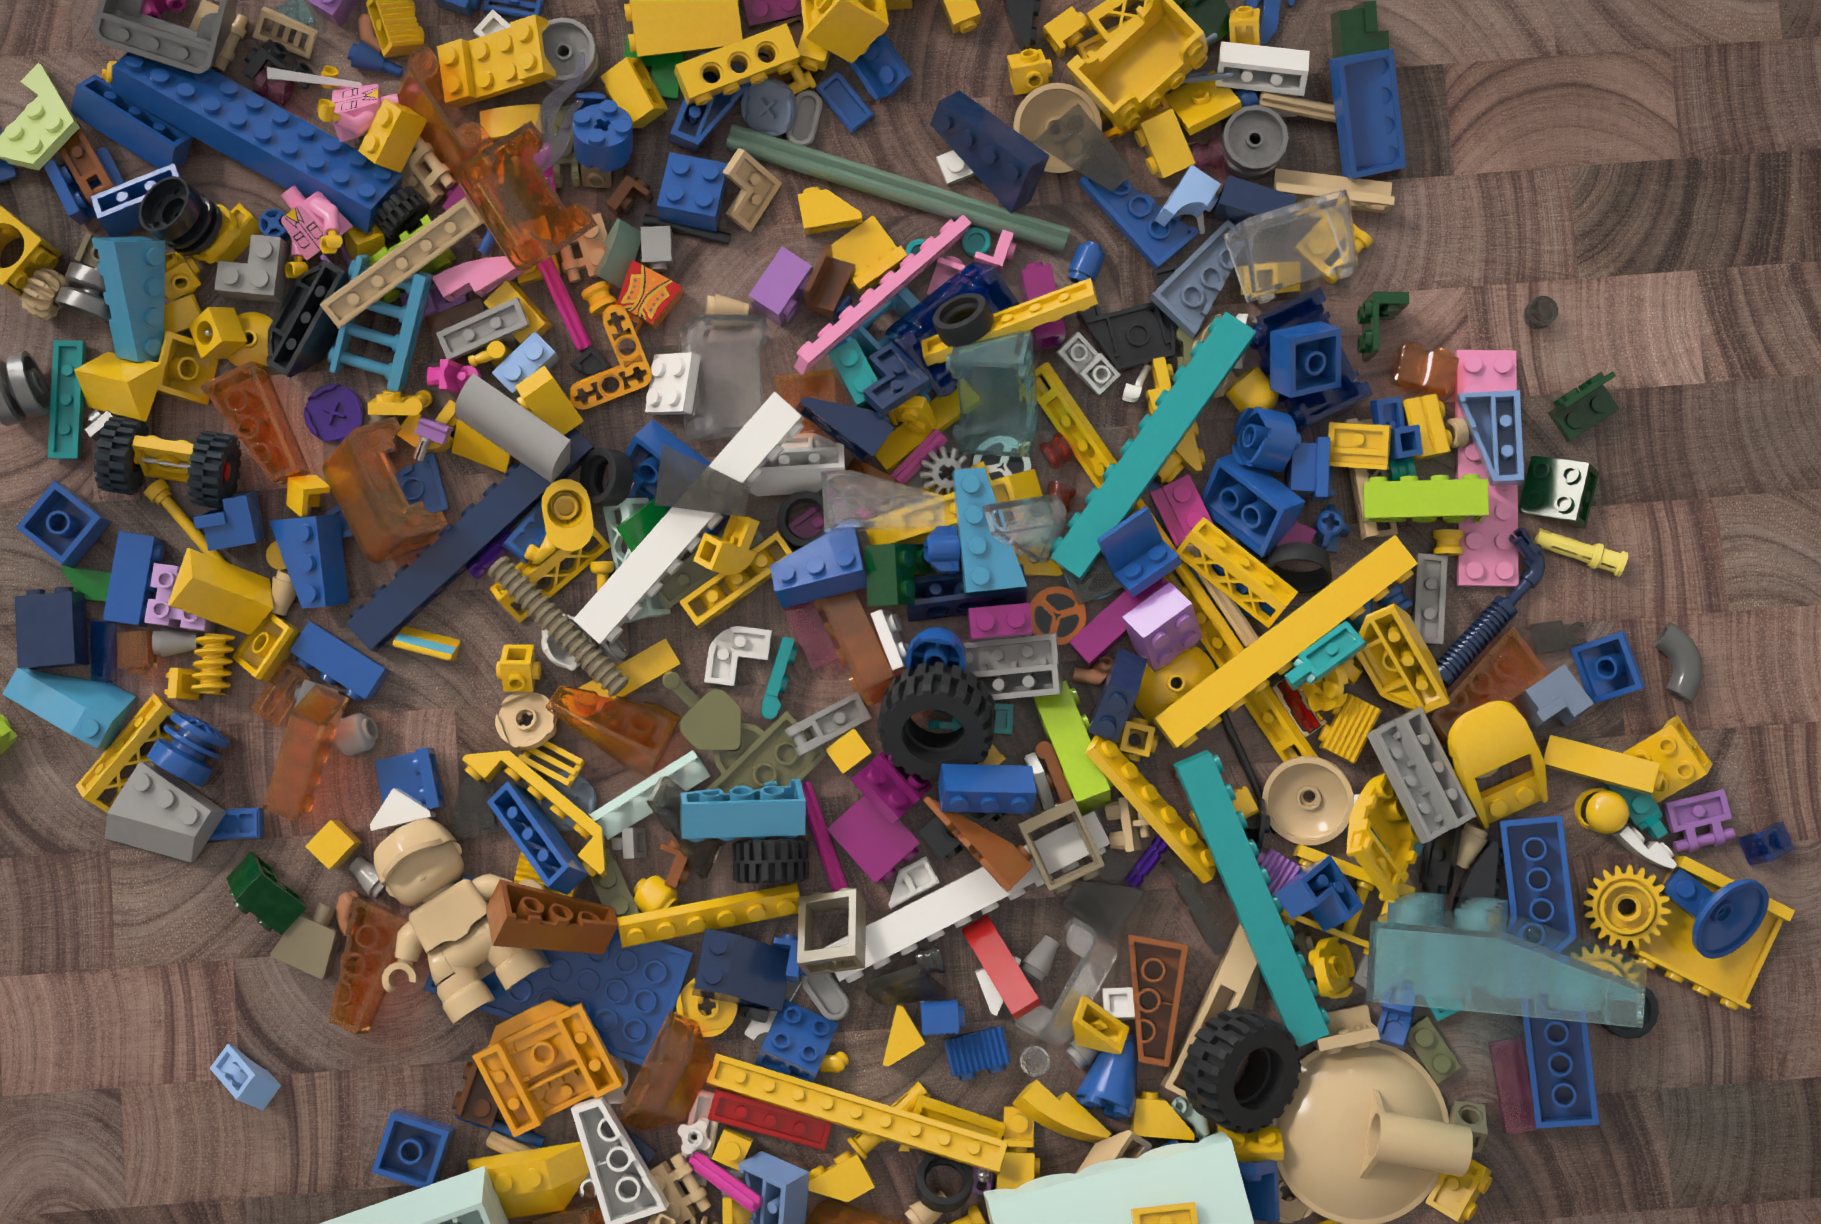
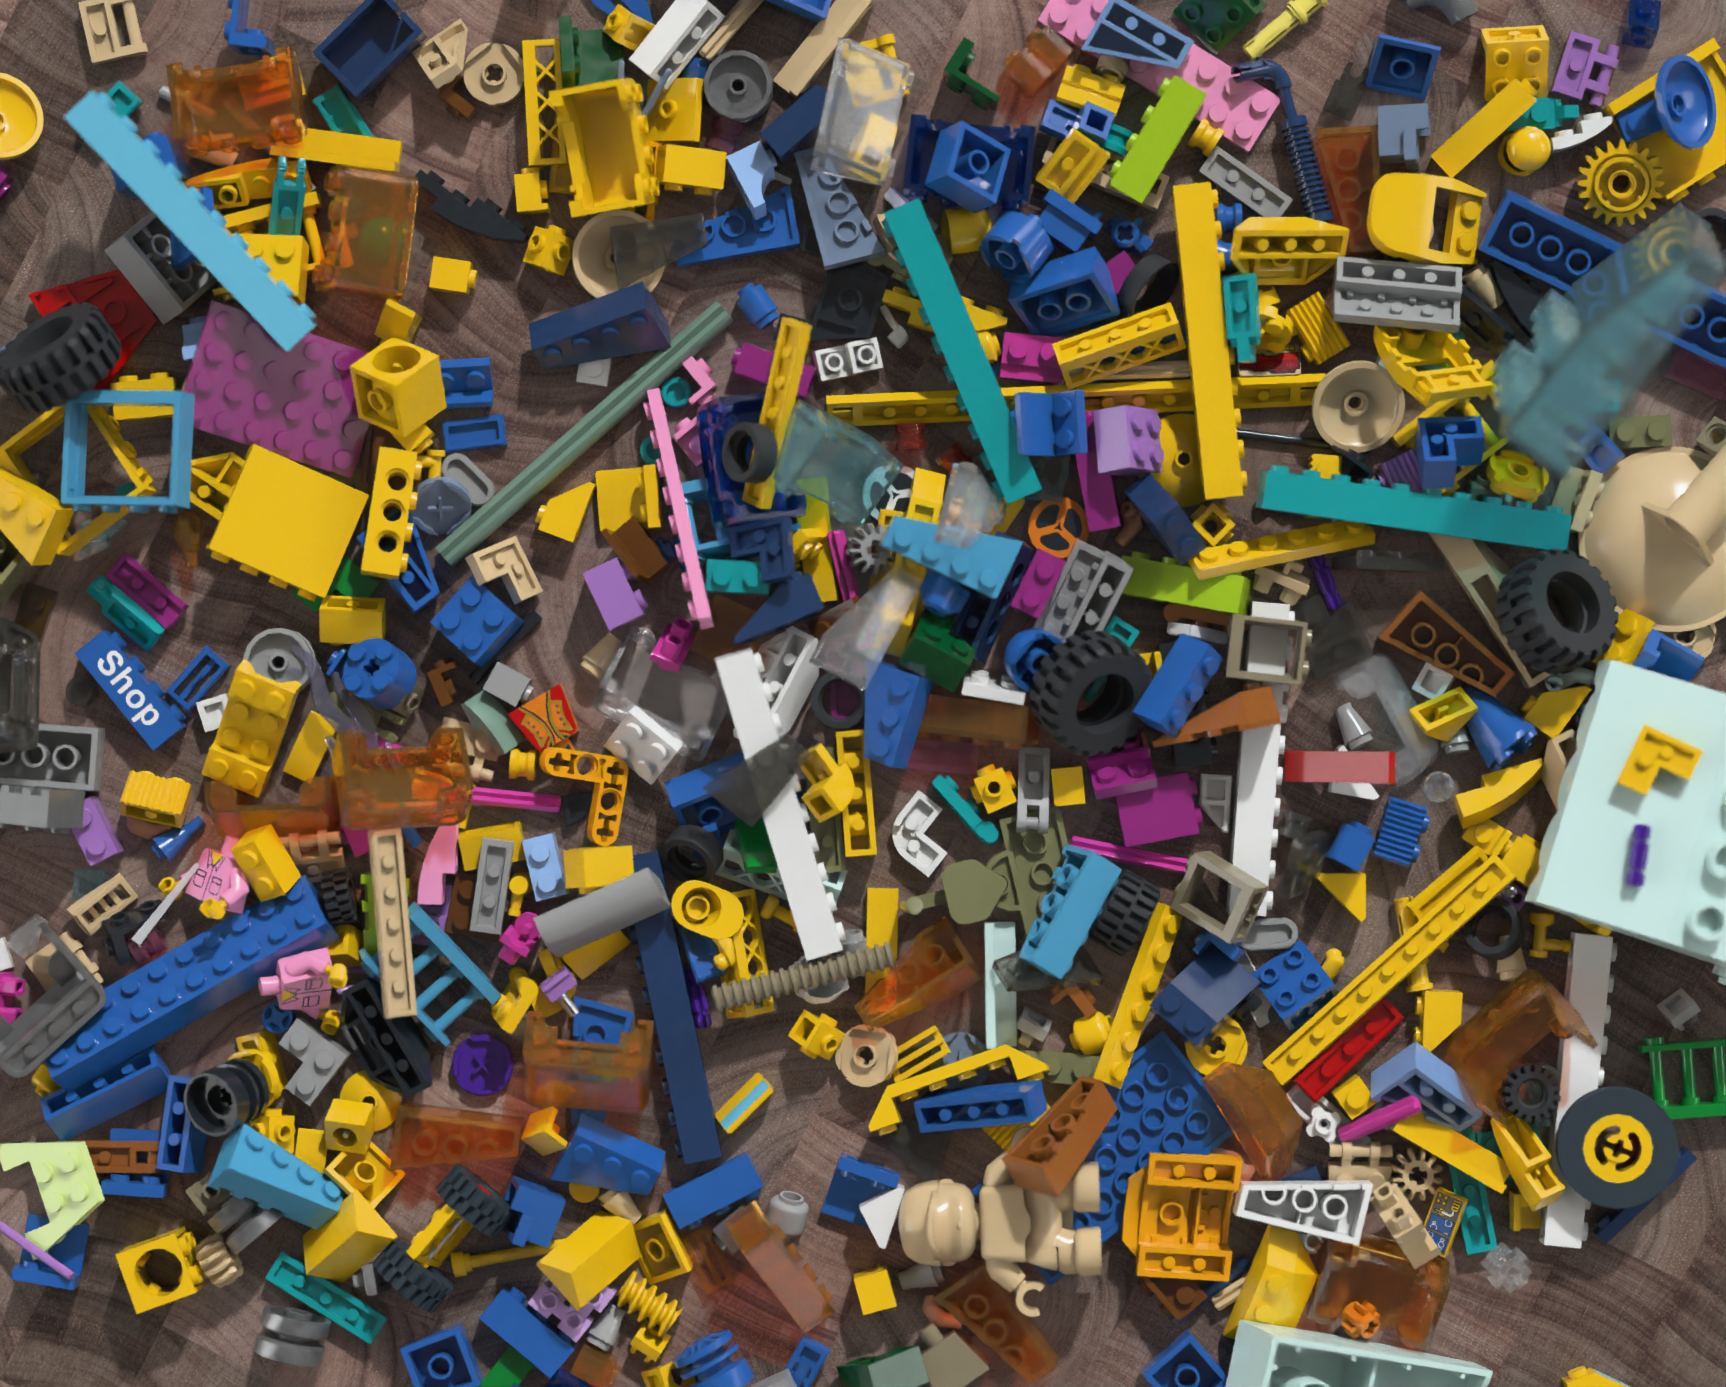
camera: 55 degrees left, 5 degrees up
(769, 359) = (673, 645): none -> dark pink hips
(806, 702) = (996, 800): none -> yellow brick

